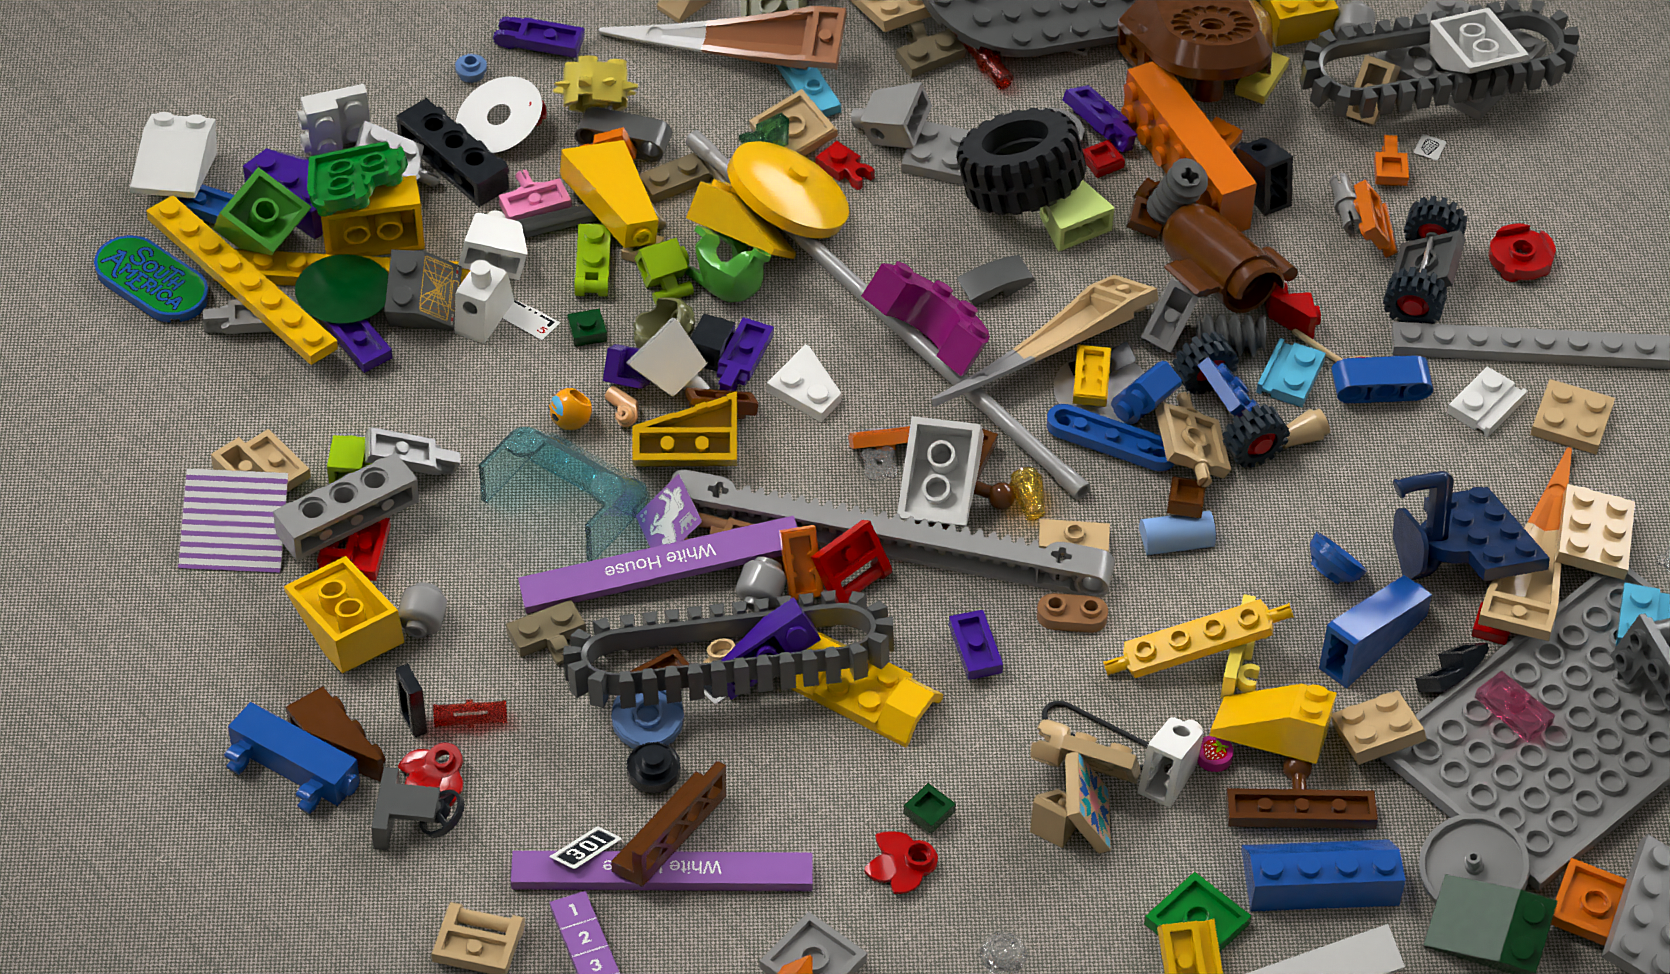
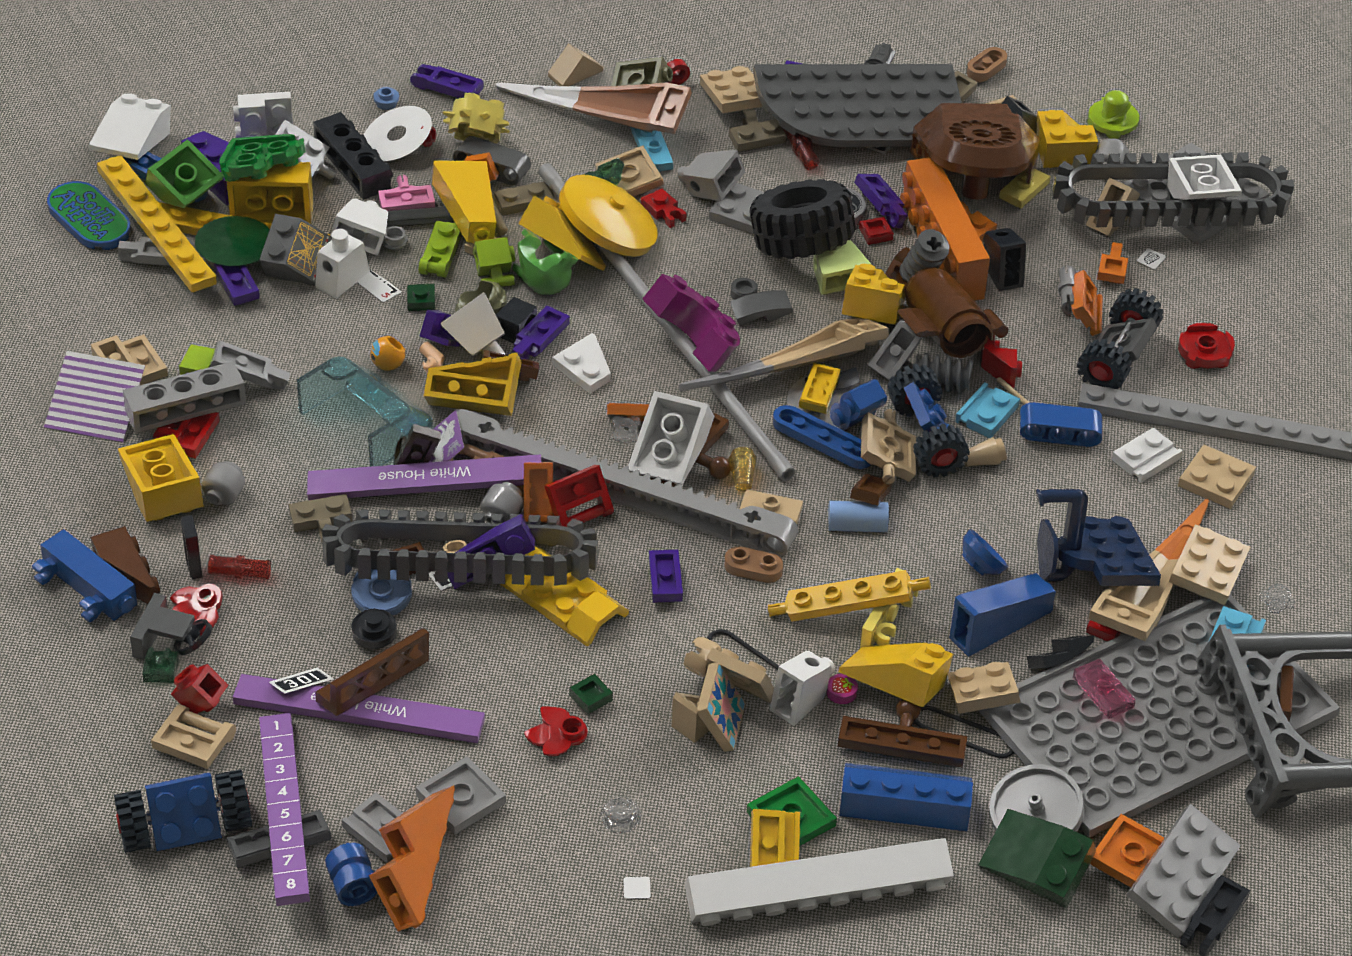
camera: 10 degrees right, 5 degrees down
(412, 856) = (160, 666): none -> clear green tile
(471, 879) = (198, 688): none -> red brick
(537, 254) = (395, 238): none -> light grey plate
(644, 529) = (417, 446): none -> dark brown plate
(967, 258) = (743, 287): none -> dark grey tile
(1126, 247) = (873, 295): none -> yellow slope
(1368, 771) = (968, 722): none -> black piece

